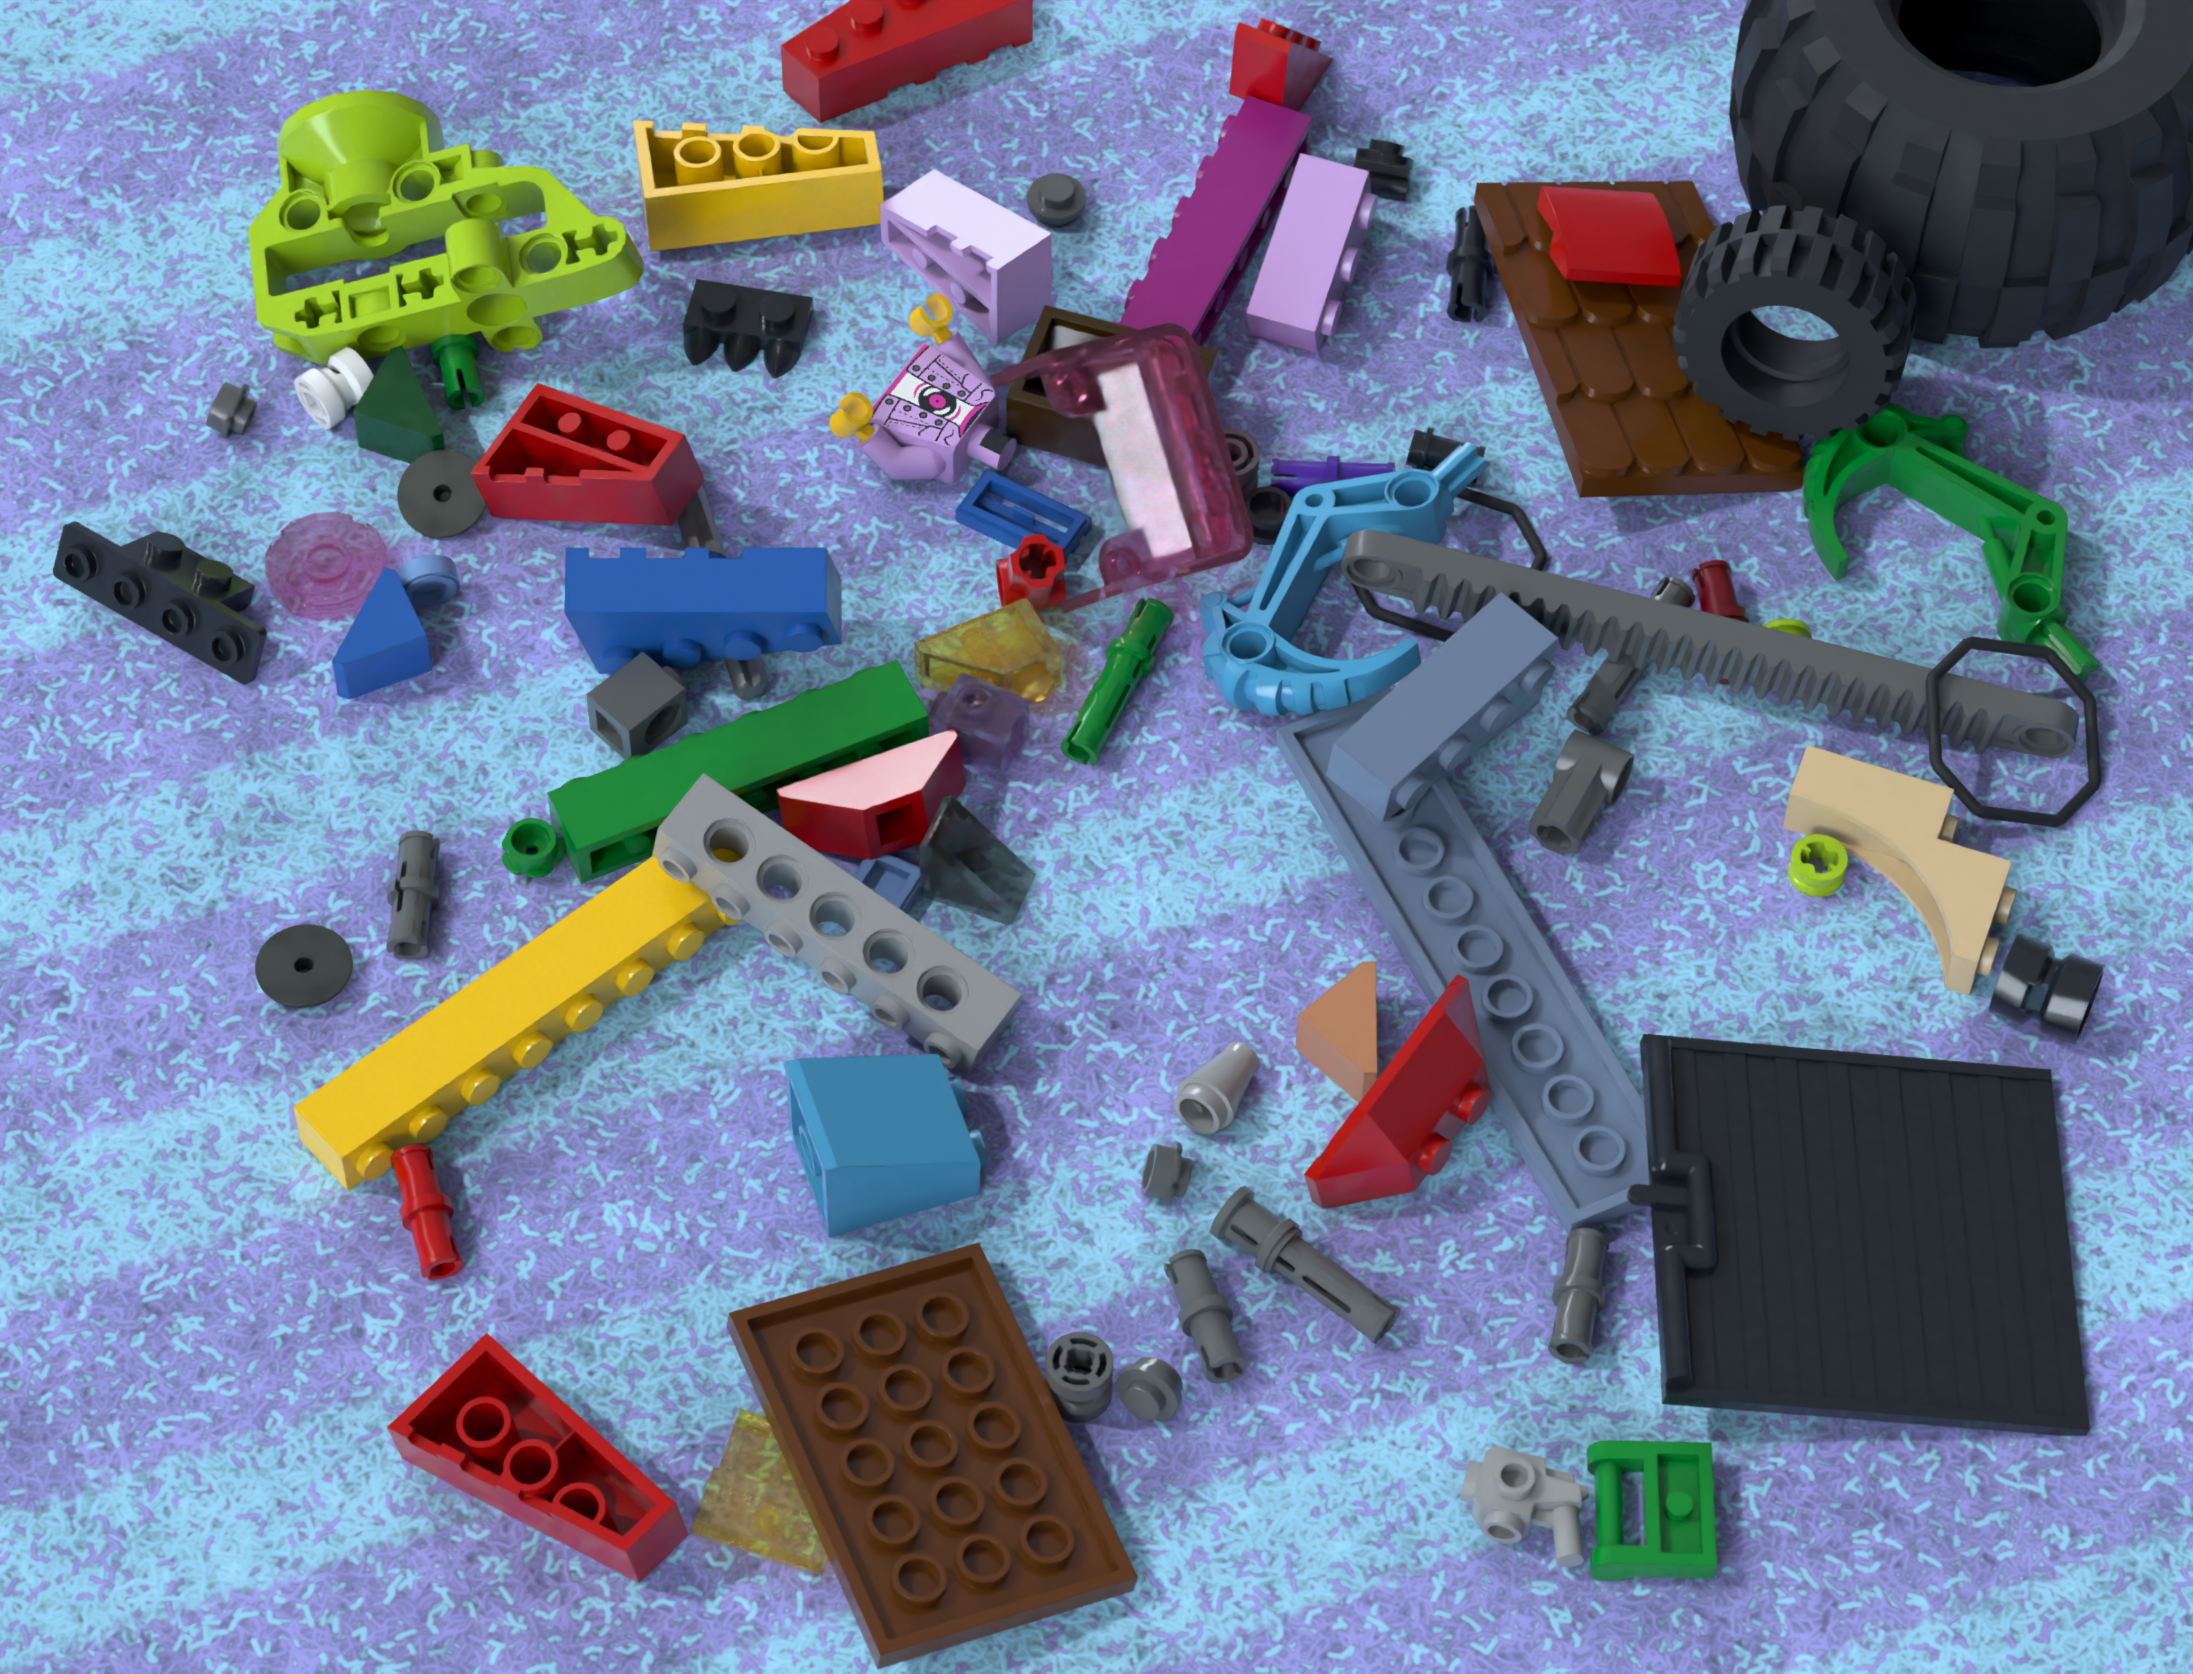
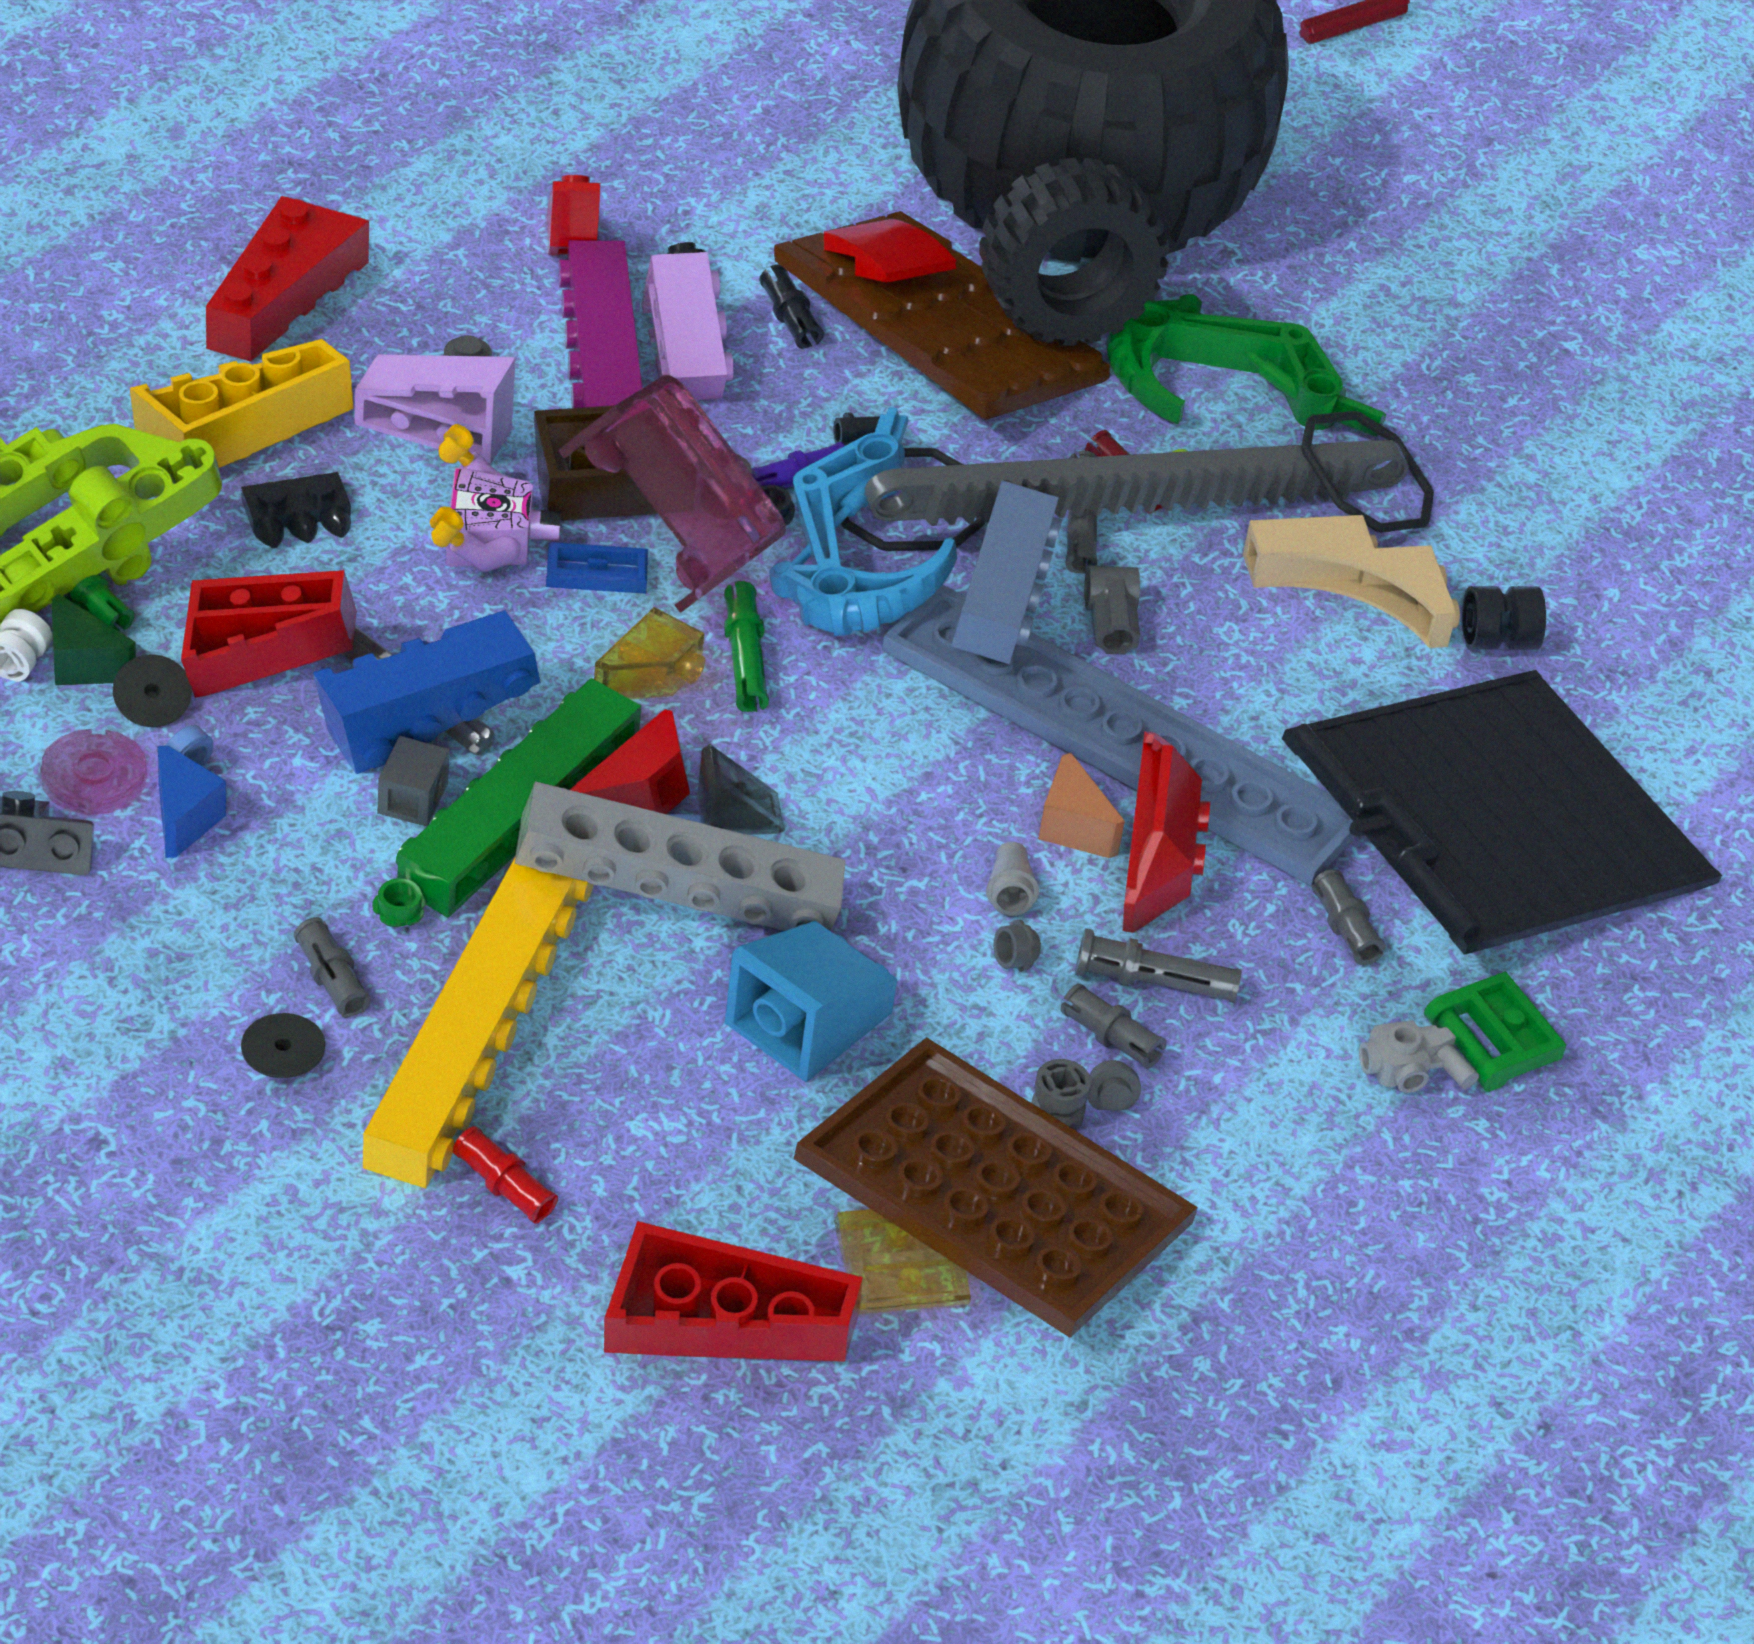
camera: 35 degrees left, 10 degrees down
(987, 721) = (676, 691): clear purple brick -> none
(1033, 573) = (647, 587): red piece -> none
(1803, 874) = (1299, 590): lime bush -> none

